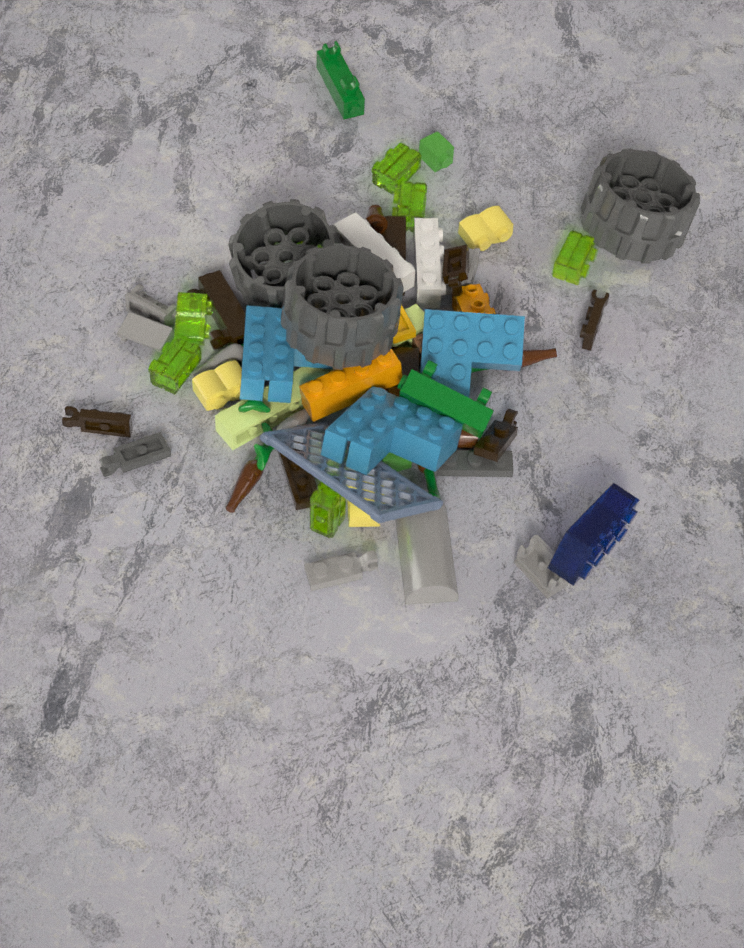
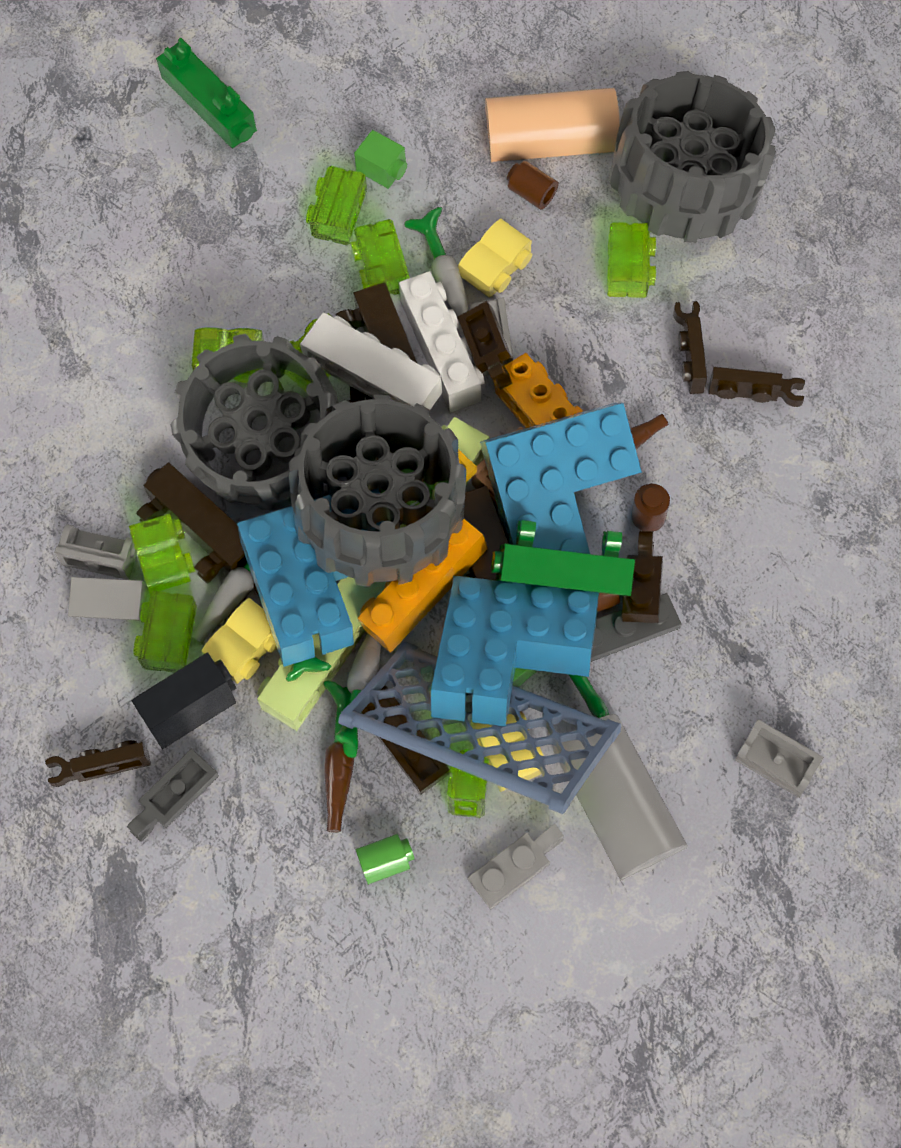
camera: 15 degrees left, 15 degrees up
(169, 401) = (186, 699): none -> black brick
(255, 534) = (385, 858): none -> bright green brick
(377, 219) = (349, 304): reddish brown cone -> none
(450, 223) = (444, 266): none -> piece
(523, 397) = (650, 507): none -> reddish brown brick
(530, 196) = (532, 184): none -> reddish brown brick
(553, 166) = (552, 124): none -> light nougat brick
(594, 534) = (838, 698): clear blue brick -> none
(626, 353) = (756, 385): none -> dark brown plate

